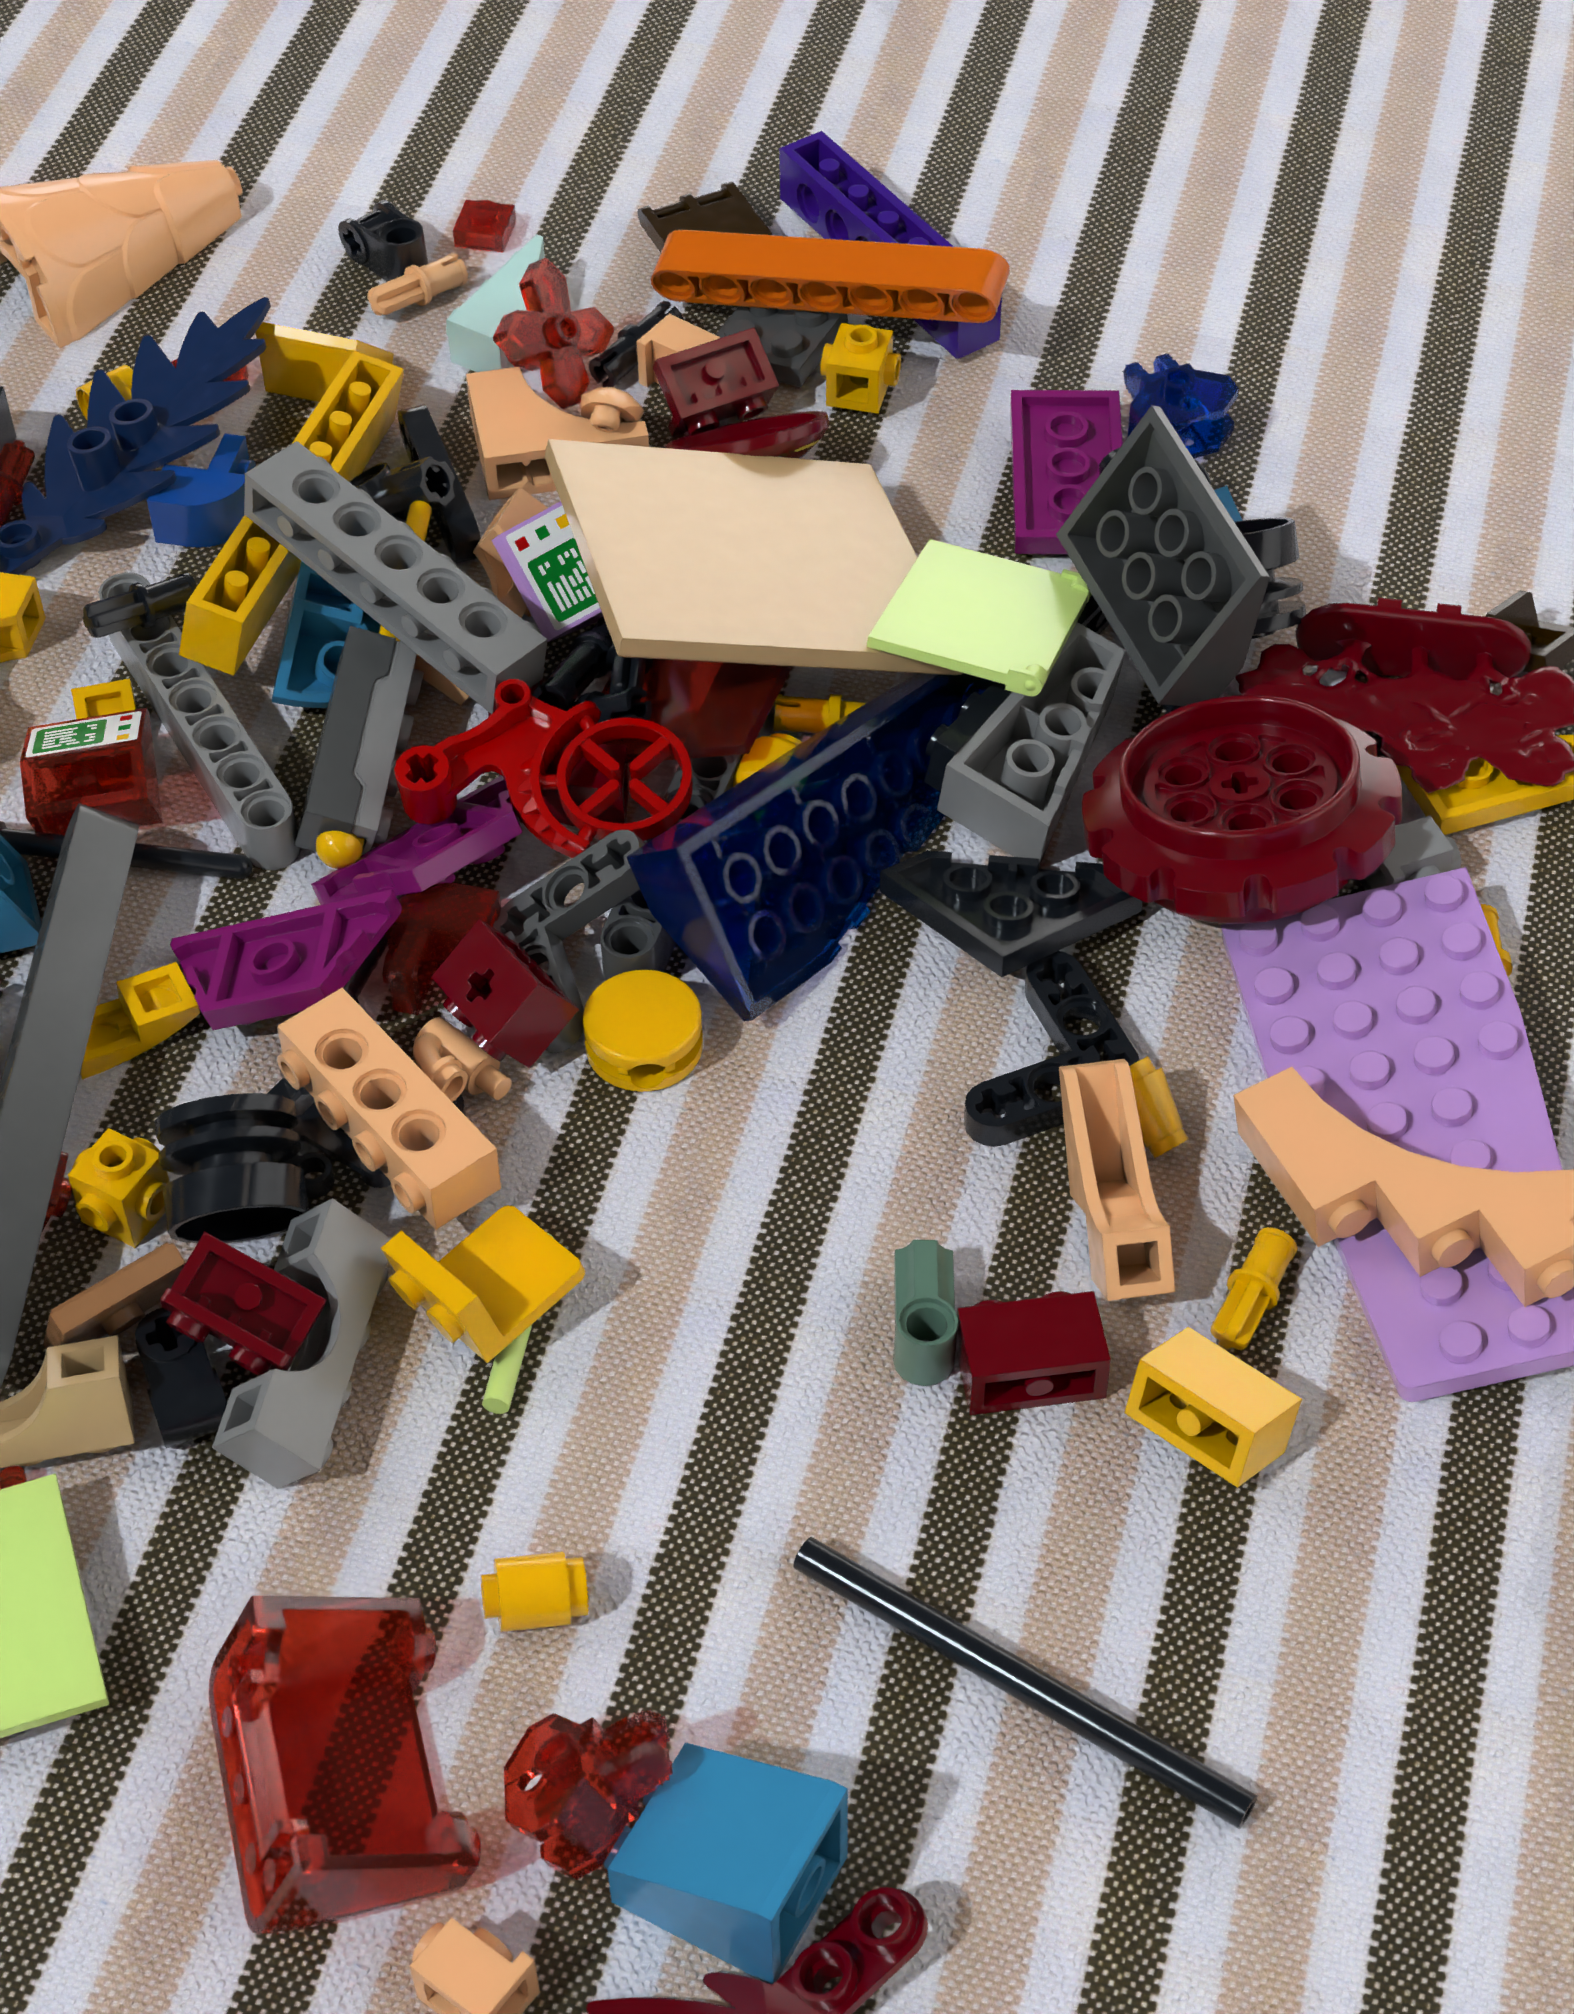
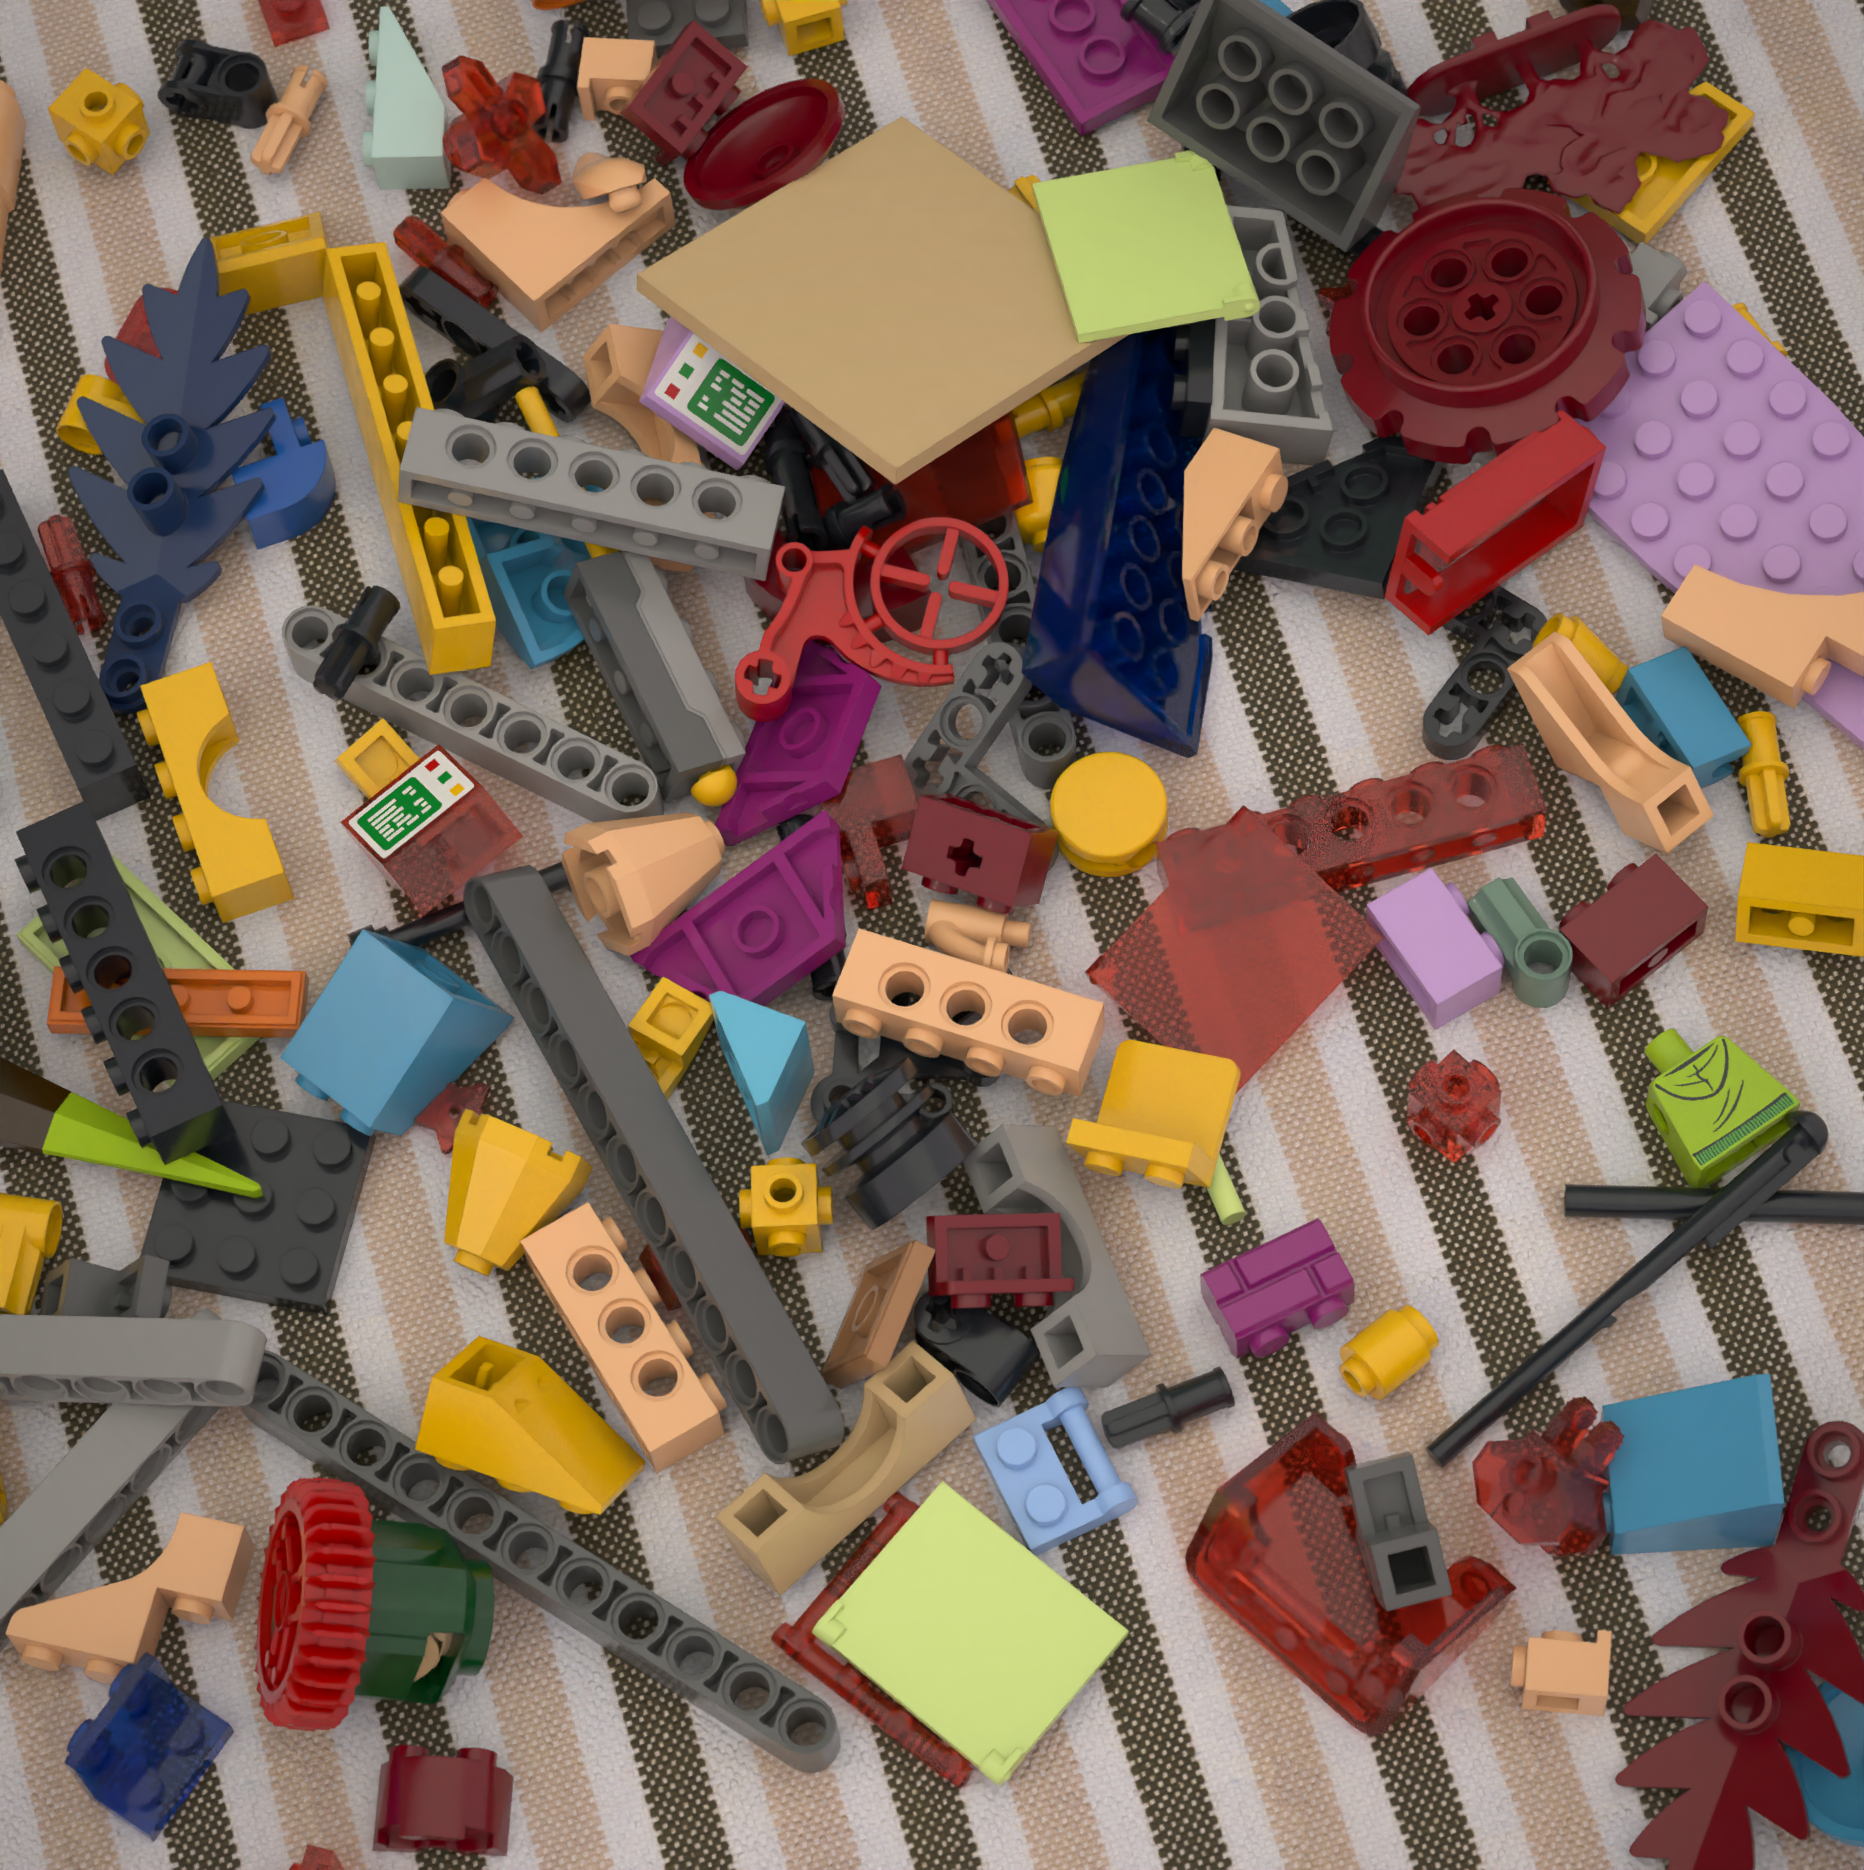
camera: 25 degrees left, 15 degrees up
(146, 1525) = (1035, 1482): none -> light blue plate
(185, 1051) = (767, 1060): none -> medium azure slope
(229, 877) = (640, 873): none -> light nougat cone
(280, 224) = (100, 121): none -> yellow brick
(306, 1530) = (1167, 1409): none -> black axle
(407, 1758) = (1394, 1532): none -> dark grey brick
(451, 419) = (444, 260): none -> clear red axle
(479, 1481) = (1278, 1290): none -> magenta brick
(657, 1183) = (1235, 949): none -> clear red piece
(755, 1410) = (1458, 1122): none -> clear red brick
(834, 1151) = (1389, 847): none -> clear red brick
(841, 1274) = (1436, 947): none -> lavender piece
(905, 843) = (1226, 501): none -> light nougat slope
(918, 1641) = (1710, 1223): none -> black bar
(1001, 1544) = (1713, 1105): none -> lime torso
(1135, 954) = (1494, 523): none -> red door
(1206, 1204) = (1683, 715): none -> dark azure hinge

